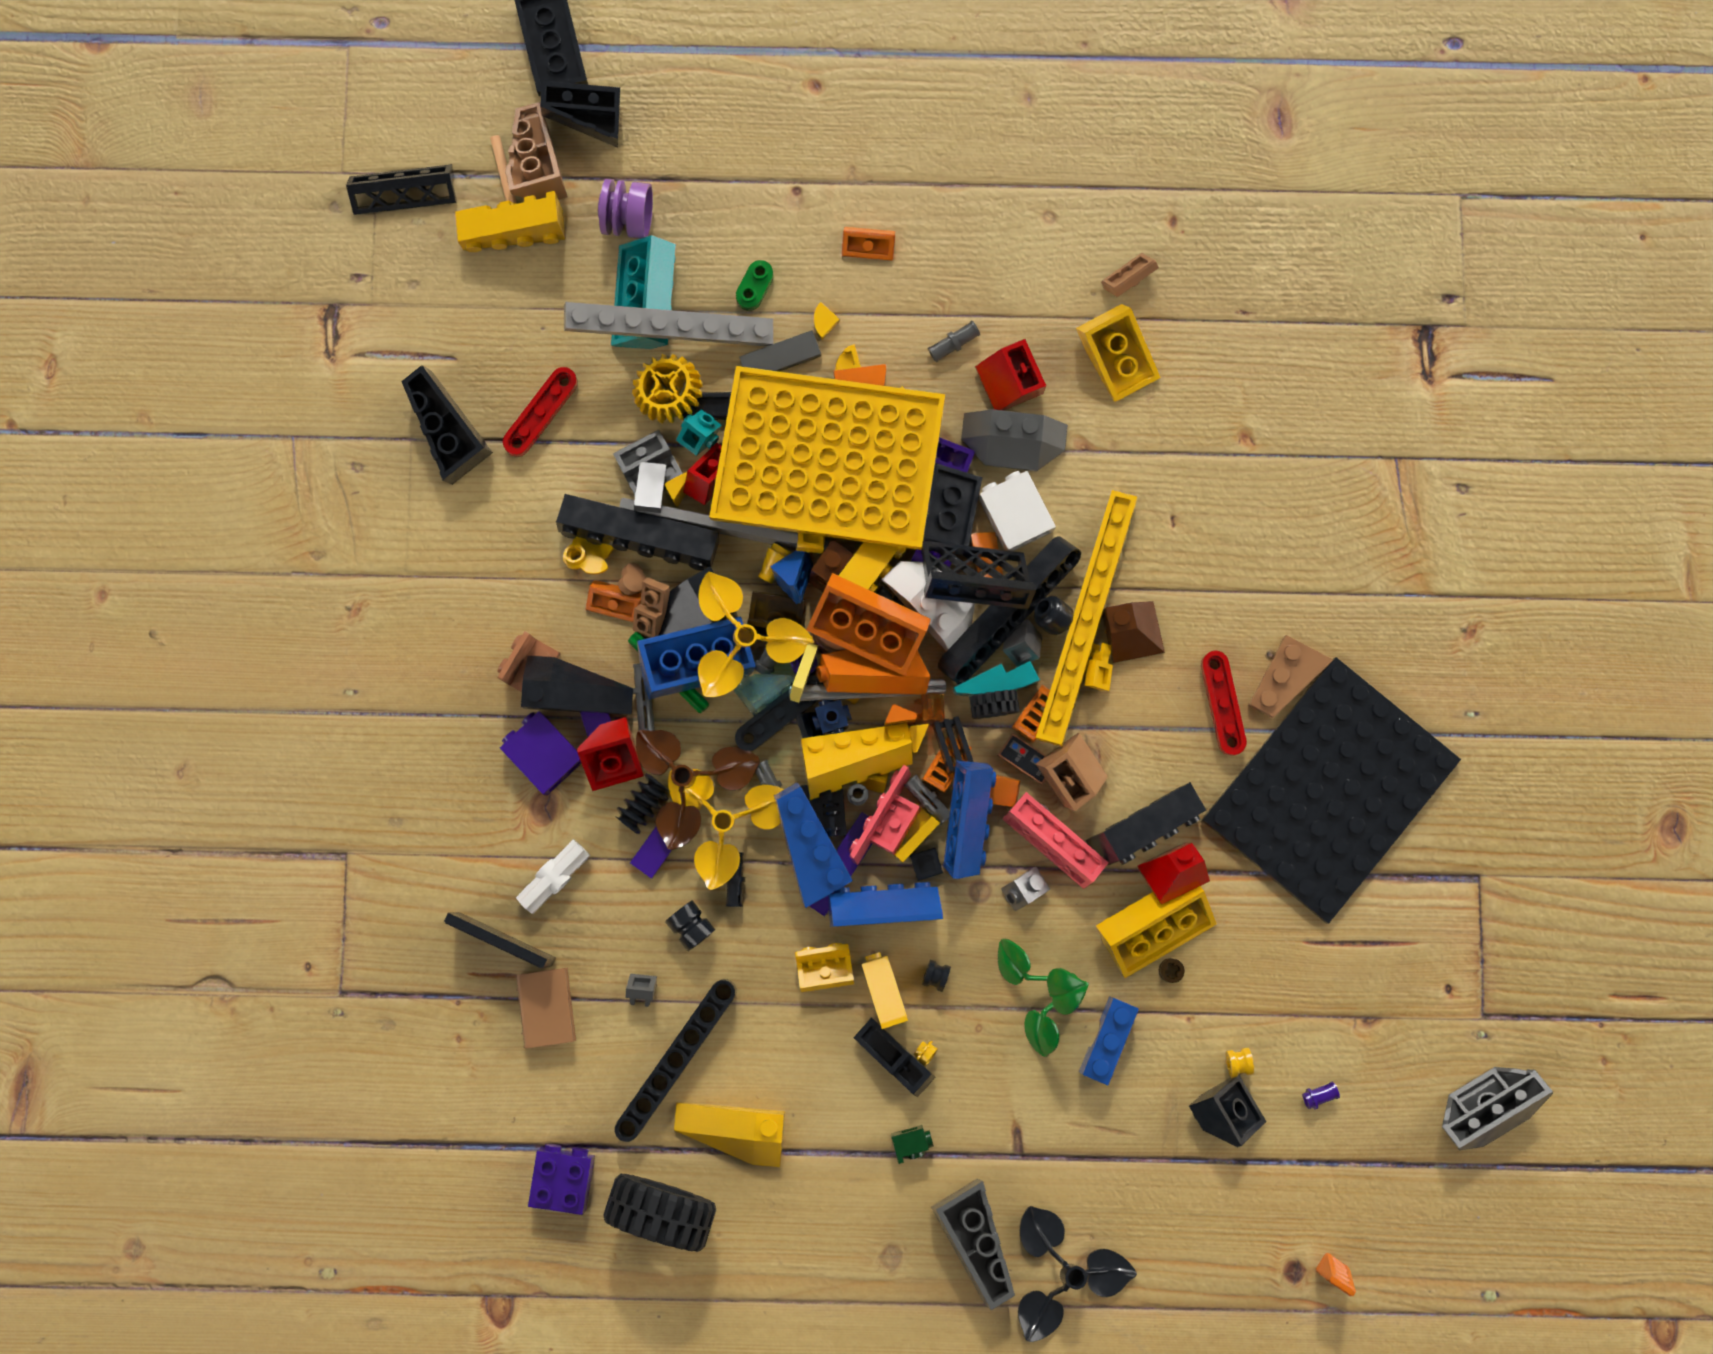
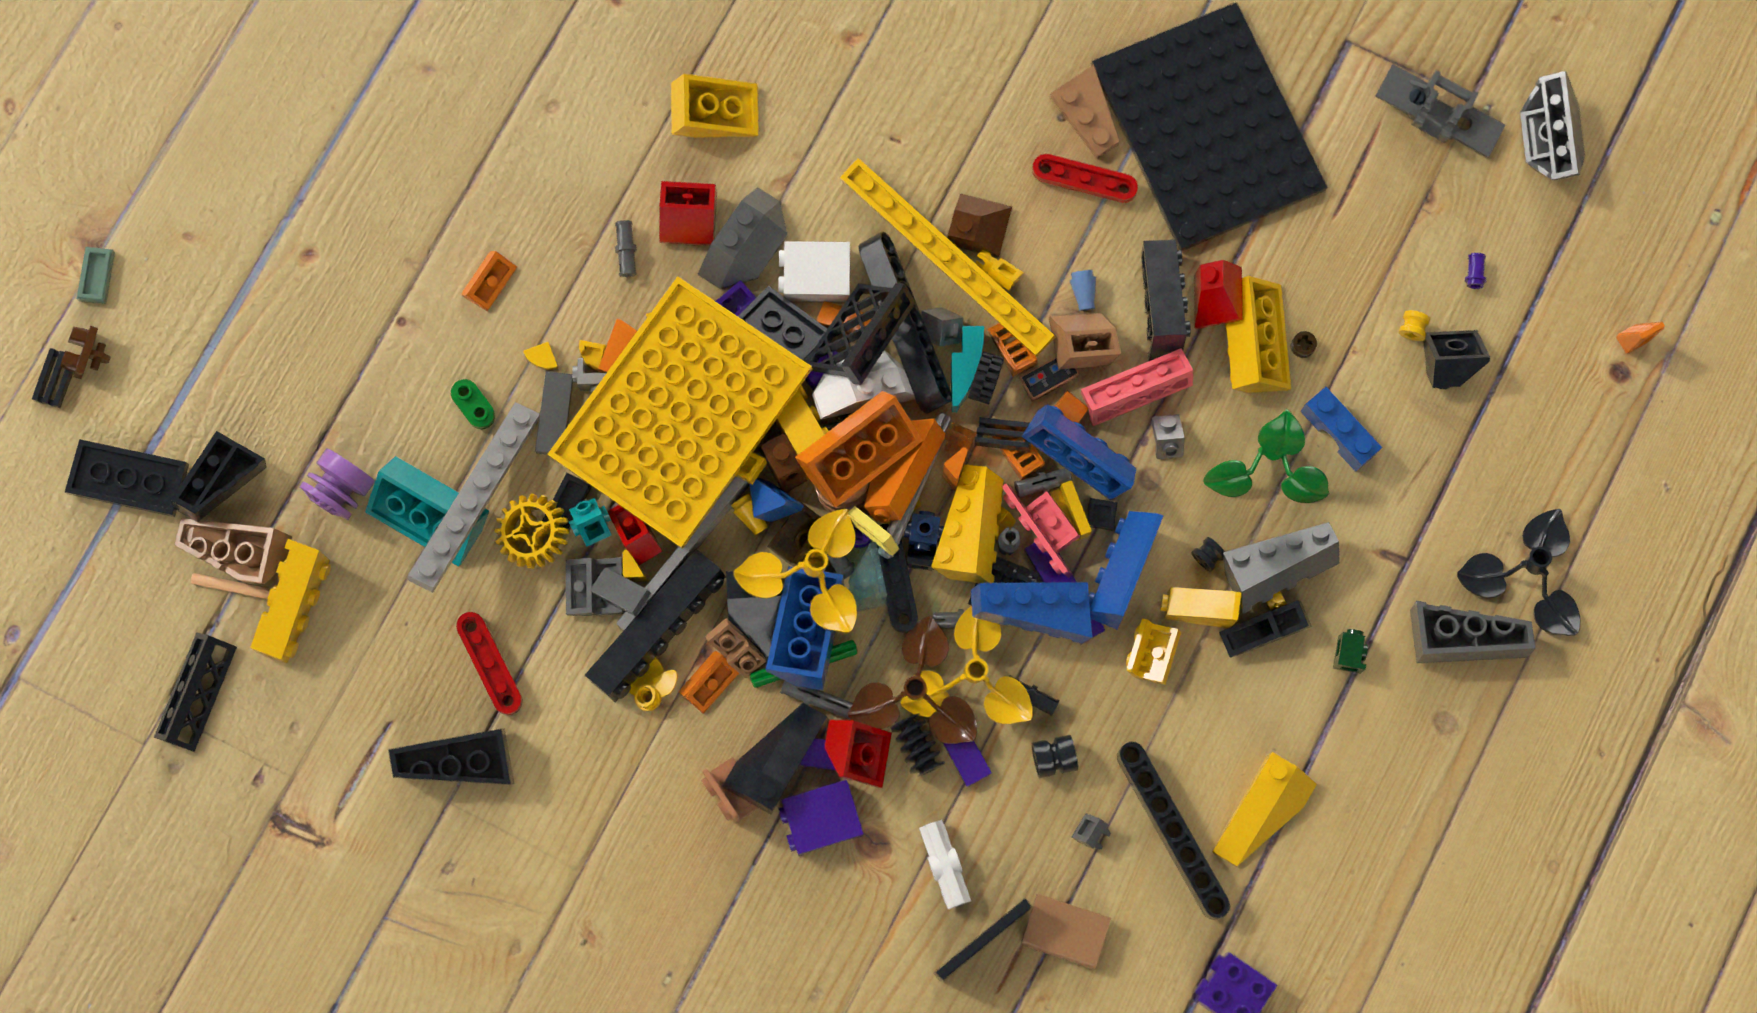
camera: 65 degrees left, 5 degrees down
(631, 579) = (698, 653): medium nougat tile -> none
(659, 1212) = (1310, 905): black tyre -> none
(821, 362) = (585, 380): none -> light grey bracket
(916, 734) = (979, 459): yellow slope -> none
(957, 1042) = (1280, 563): none -> dark grey wedge
(1053, 615) = (930, 285): black head -> none
(1121, 751) = (1084, 288): none -> medium blue cone
(1129, 274) = (647, 62): medium nougat plate -> none
(1447, 992) = (1435, 117): none -> dark grey piece

